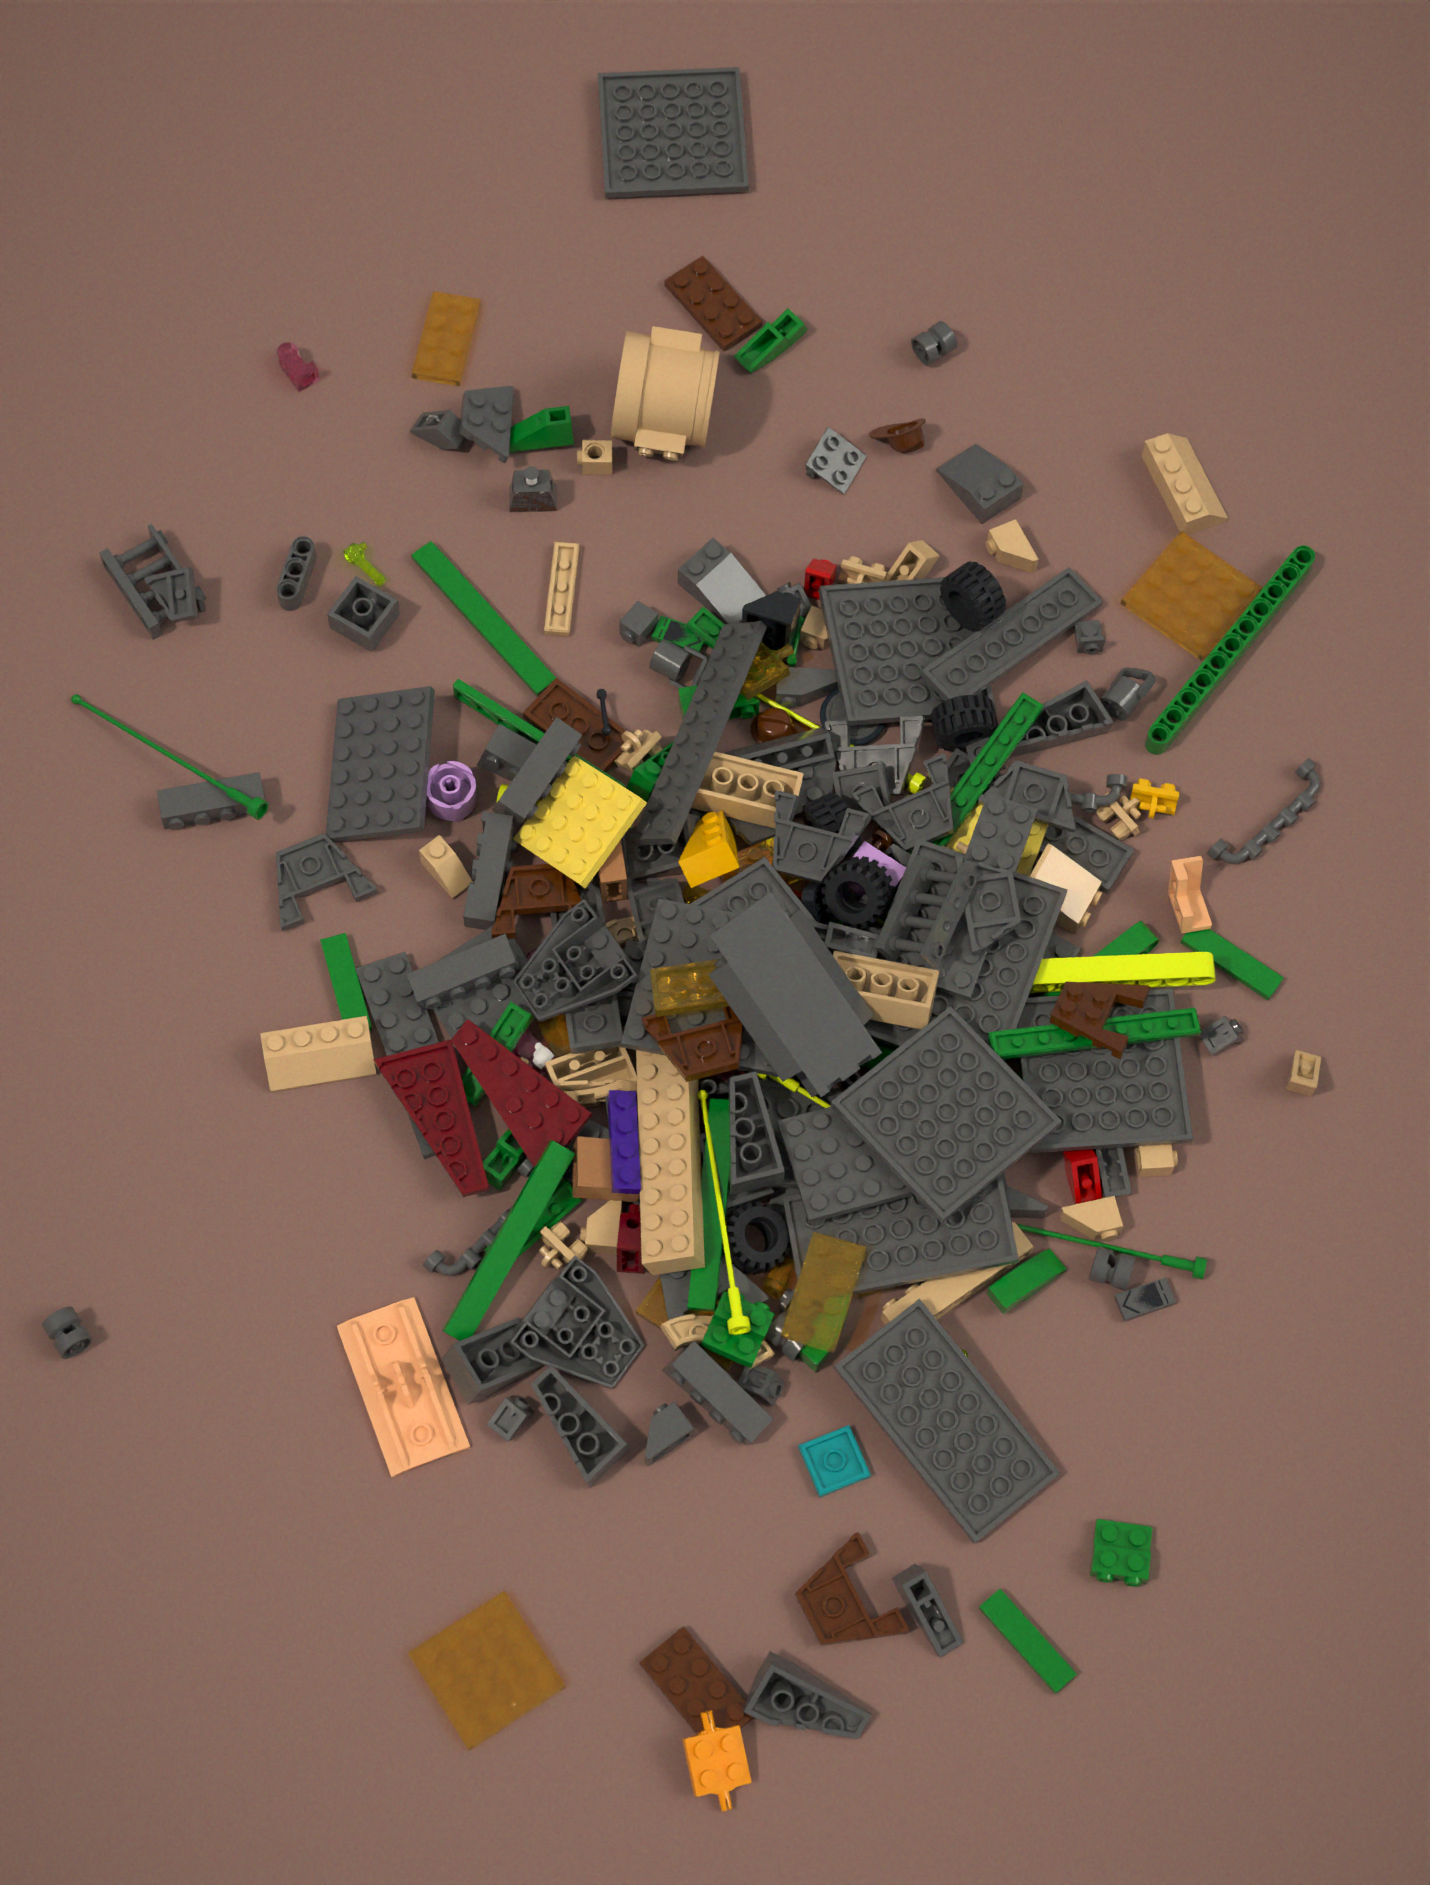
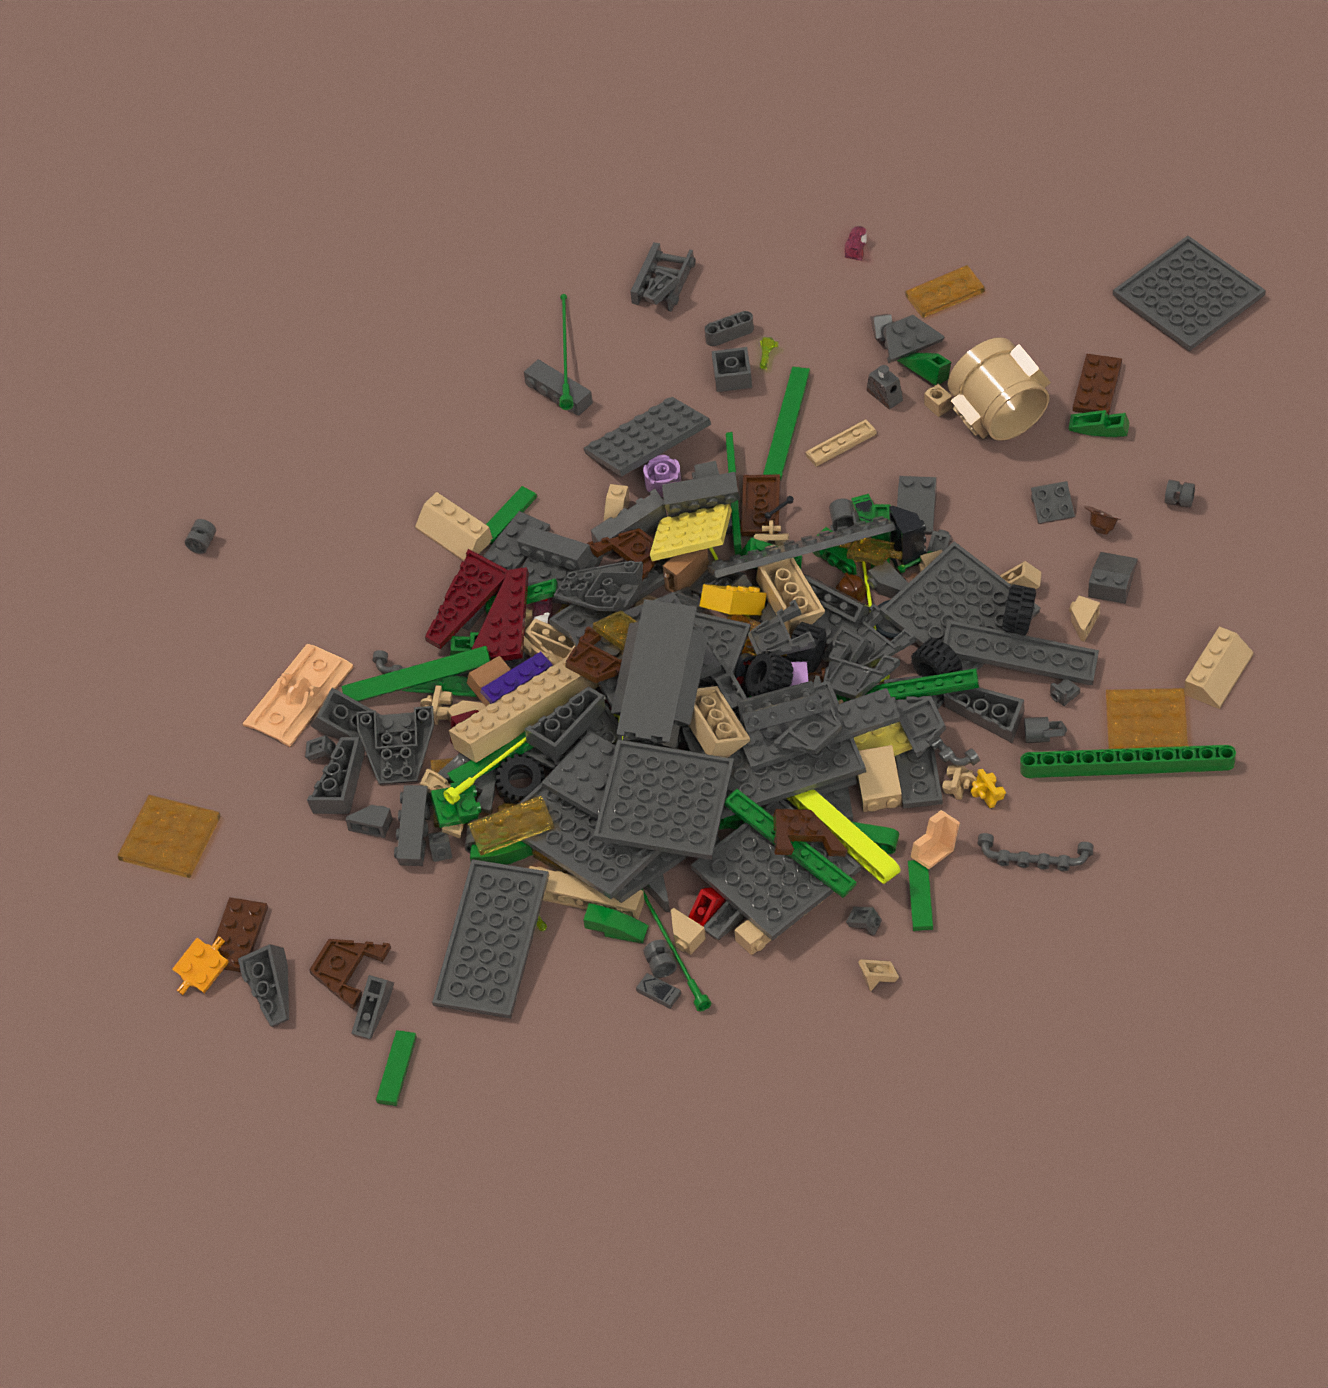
camera: 60 degrees right, 15 degrees down
(310, 868) = (559, 453): dark grey wing -> none
(638, 624) = (850, 485): dark grey brick -> none
(818, 574) = (967, 539): red slope -> none
(834, 1461) = (425, 909): teal tile -> none
(854, 572) = (990, 559): tan hips -> none
(1121, 1552) = (489, 1078): green plate -> none

